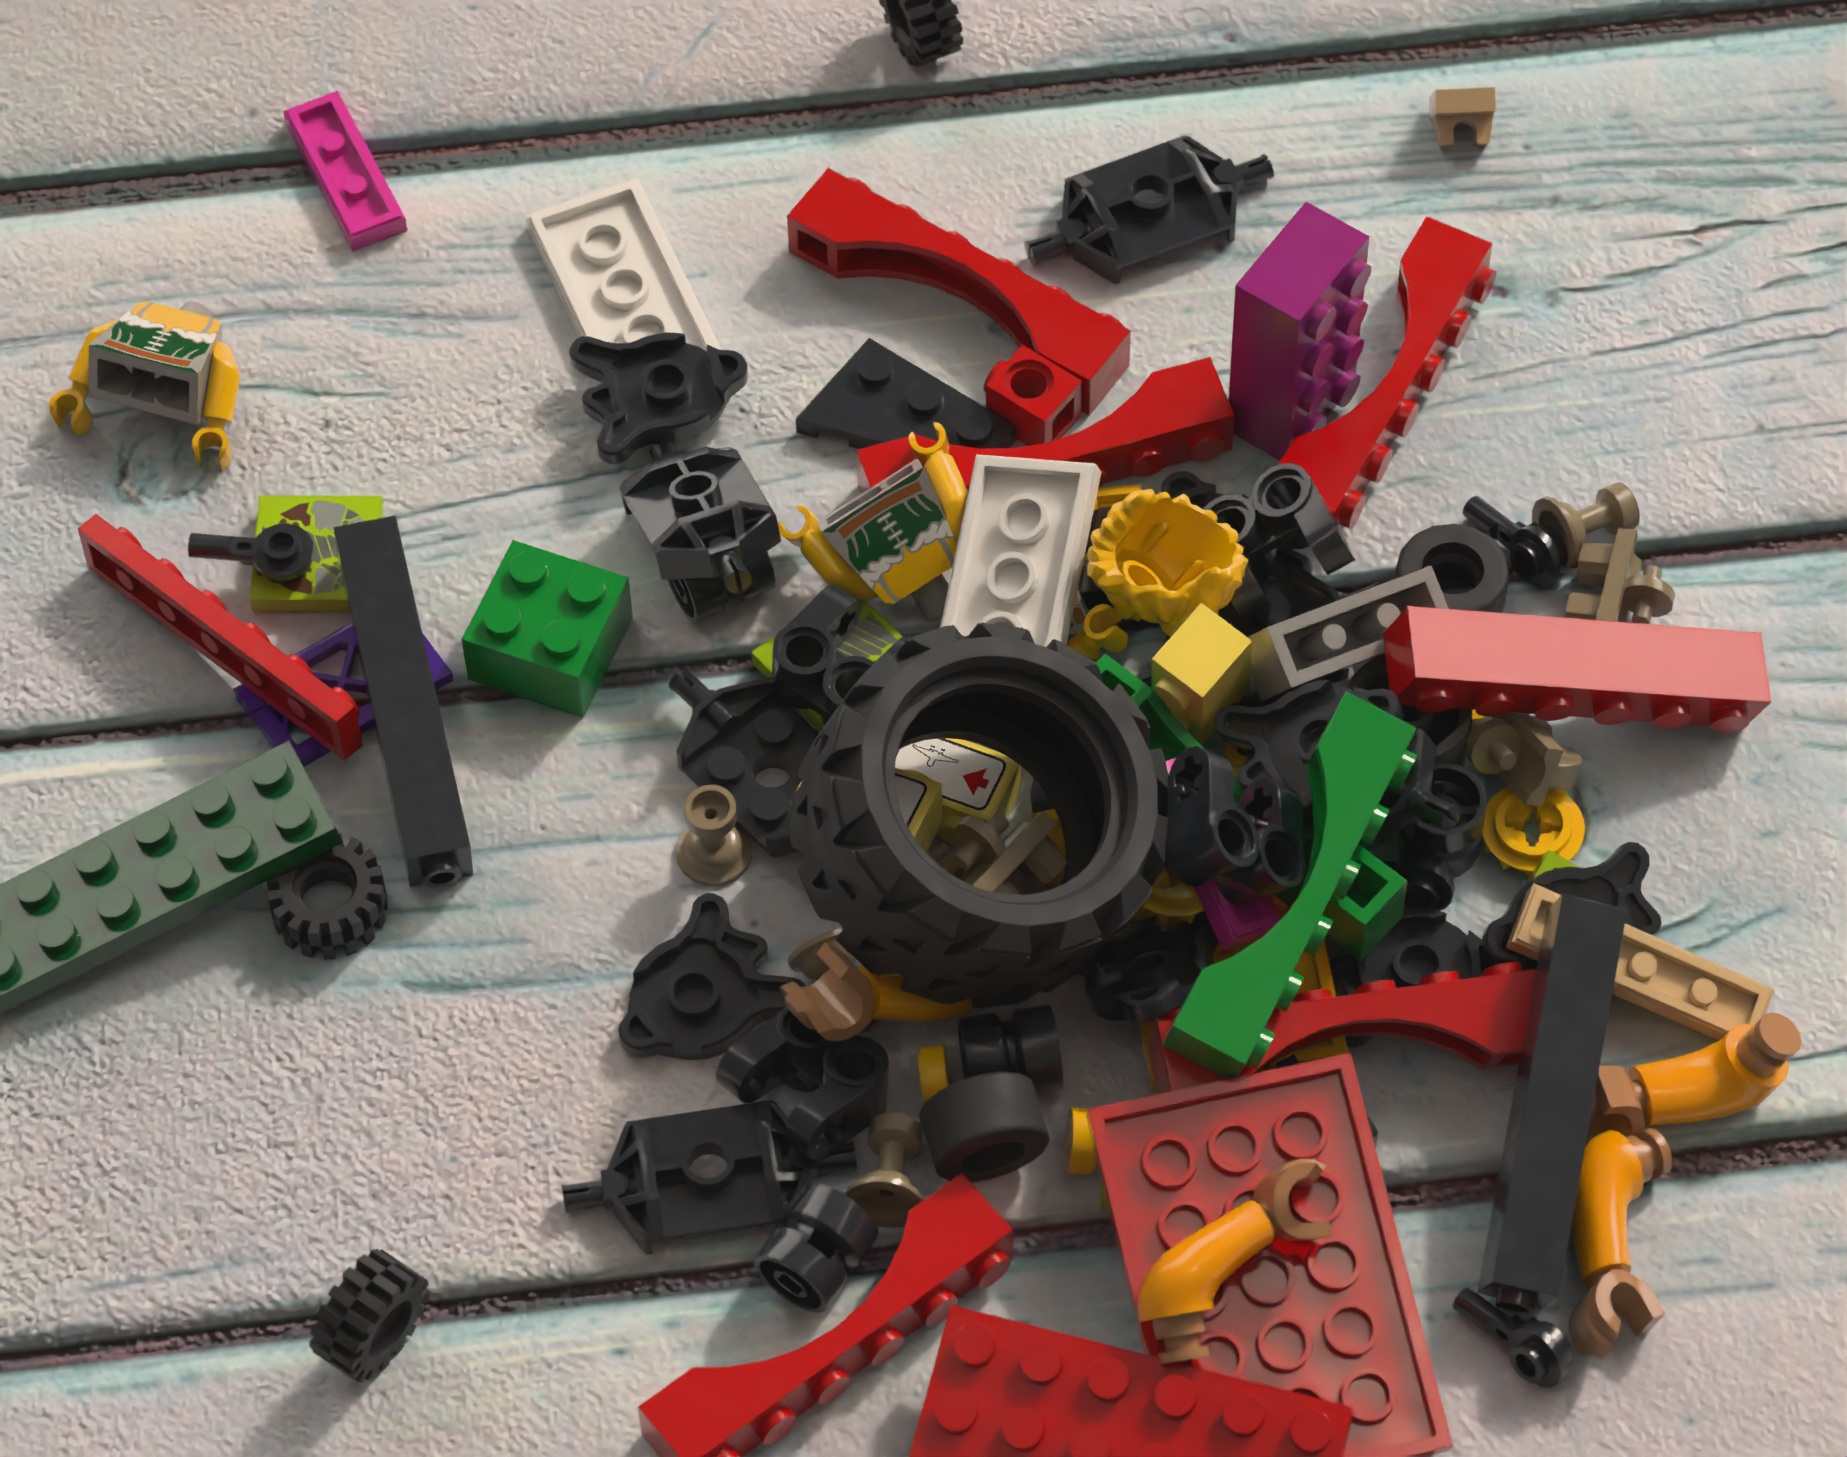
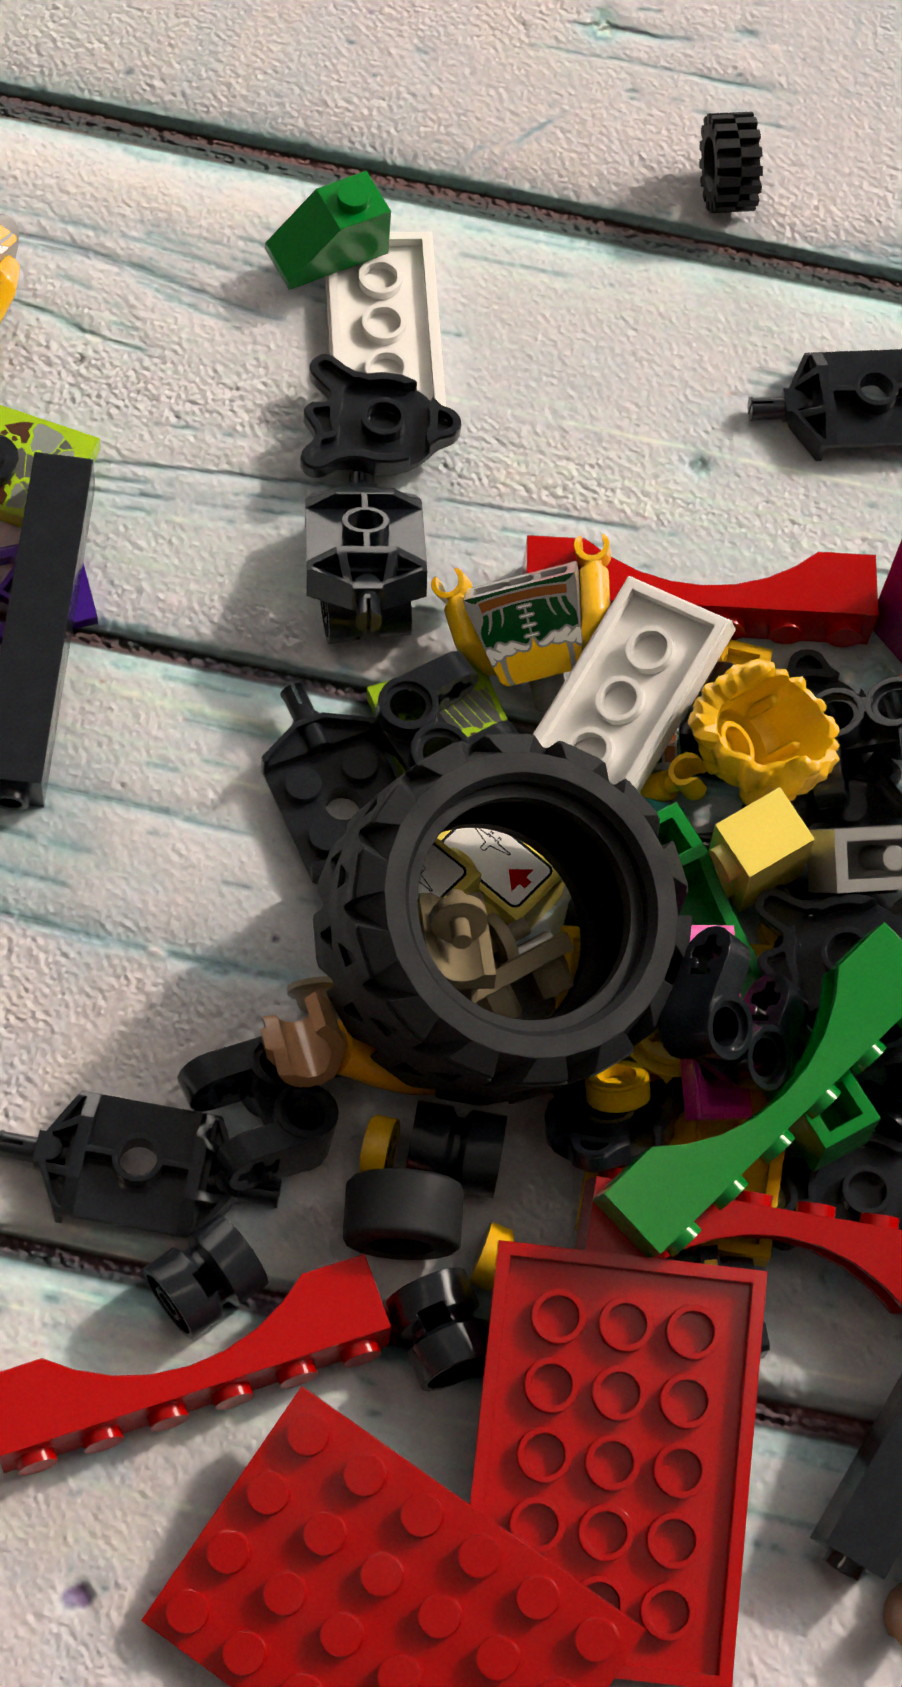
camera: 10 degrees right, 5 degrees up
(345, 171) = (185, 145): dark pink tile -> none
(539, 211) = (331, 231): none -> green slope
(547, 628) = (193, 605): green brick -> none
(700, 989) = (202, 985): black tile -> none
(713, 845) = (264, 852): dark tan piece -> none
(861, 234) = (607, 343): red arch -> none
(886, 1191) = (290, 1244): dark tan piece -> none
(887, 398) = (577, 496): black wing -> none
(947, 837) = (459, 939): none -> dark tan hips
(1030, 375) = (703, 560): red brick -> none
(1053, 1210) = (452, 1350): none -> black wheel
(1145, 940) = (619, 1088): none -> yellow tile
(1193, 1269) = (536, 1441): light orange piece -> none
(1536, 1347) = (846, 1617): black plate -> none

